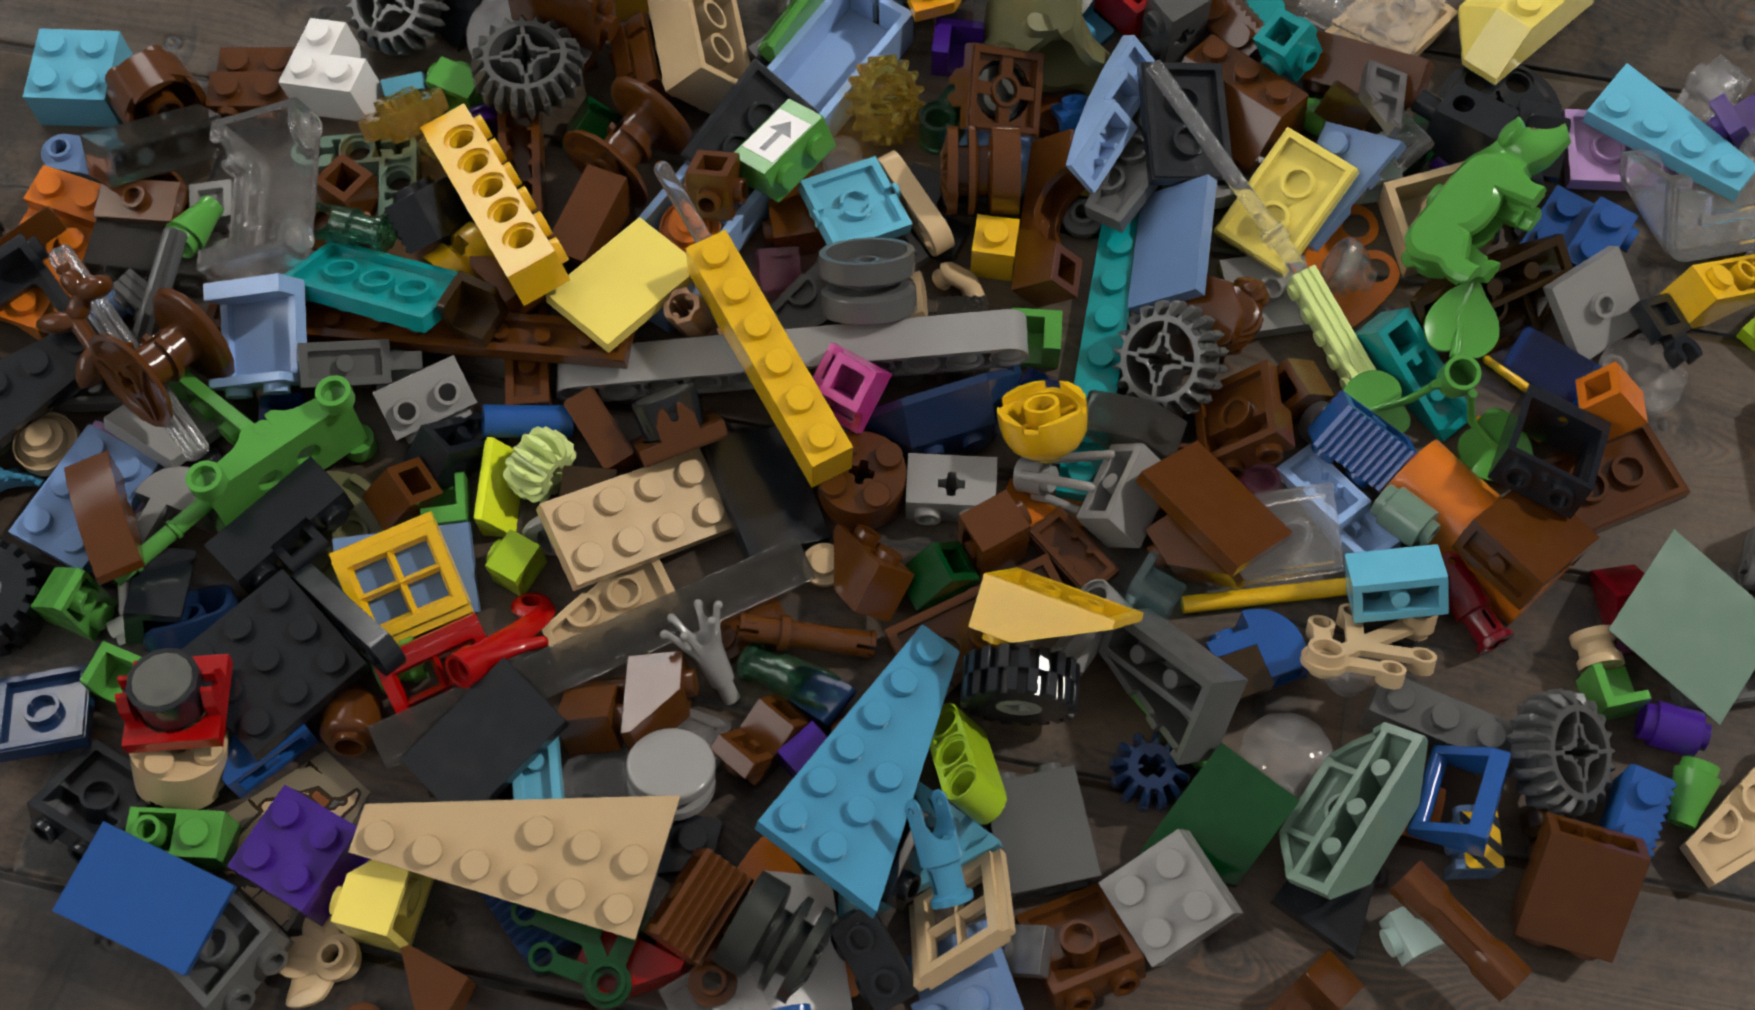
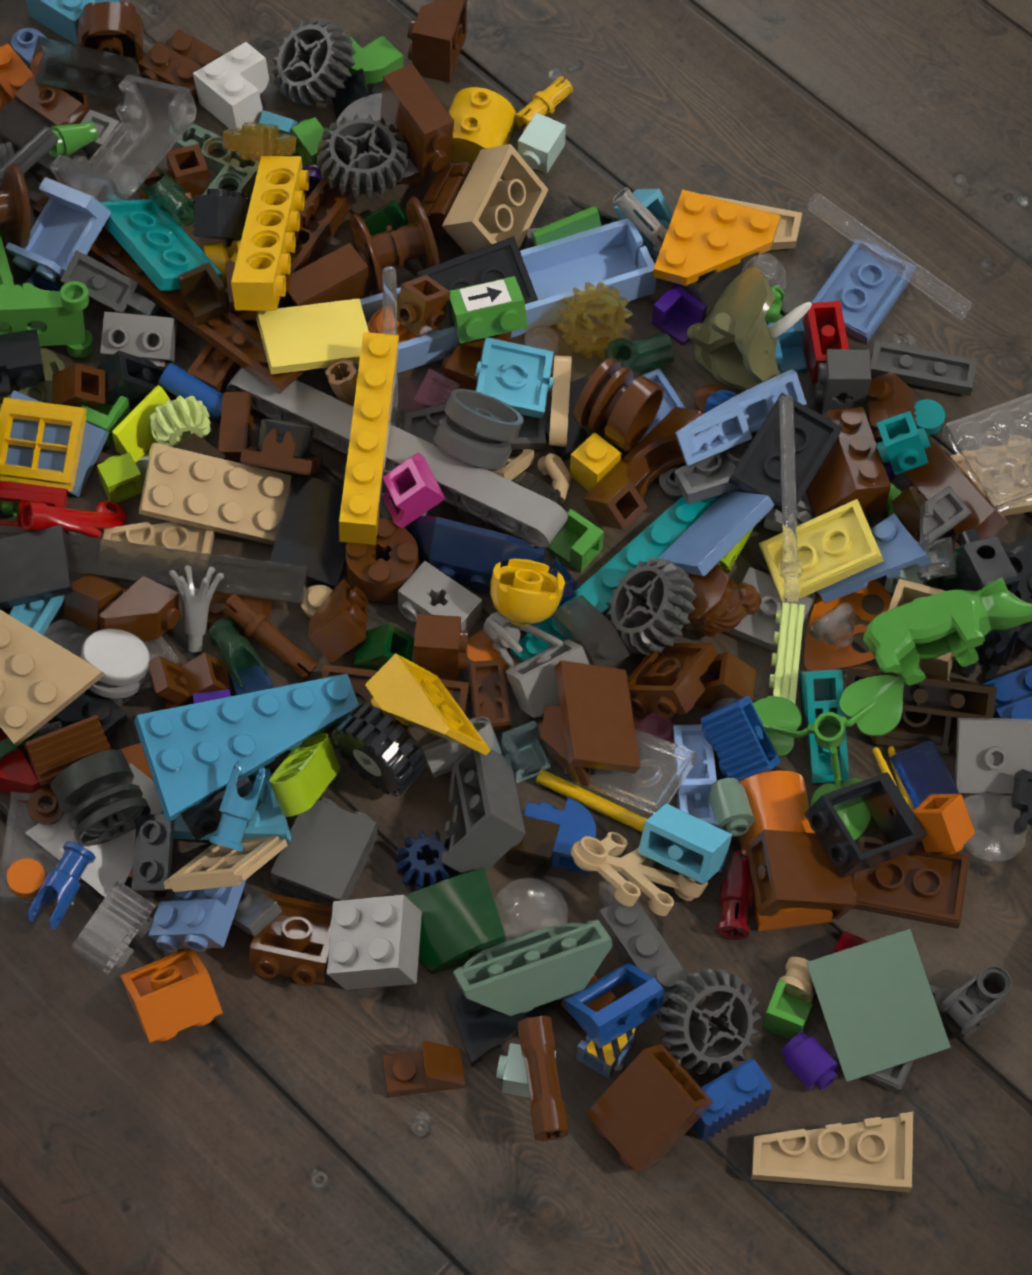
camera: 30 degrees right, 5 degrees down
(994, 92) = (672, 356): reddish brown piece -> none
(1696, 785) = (791, 1109): bright green cone -> none

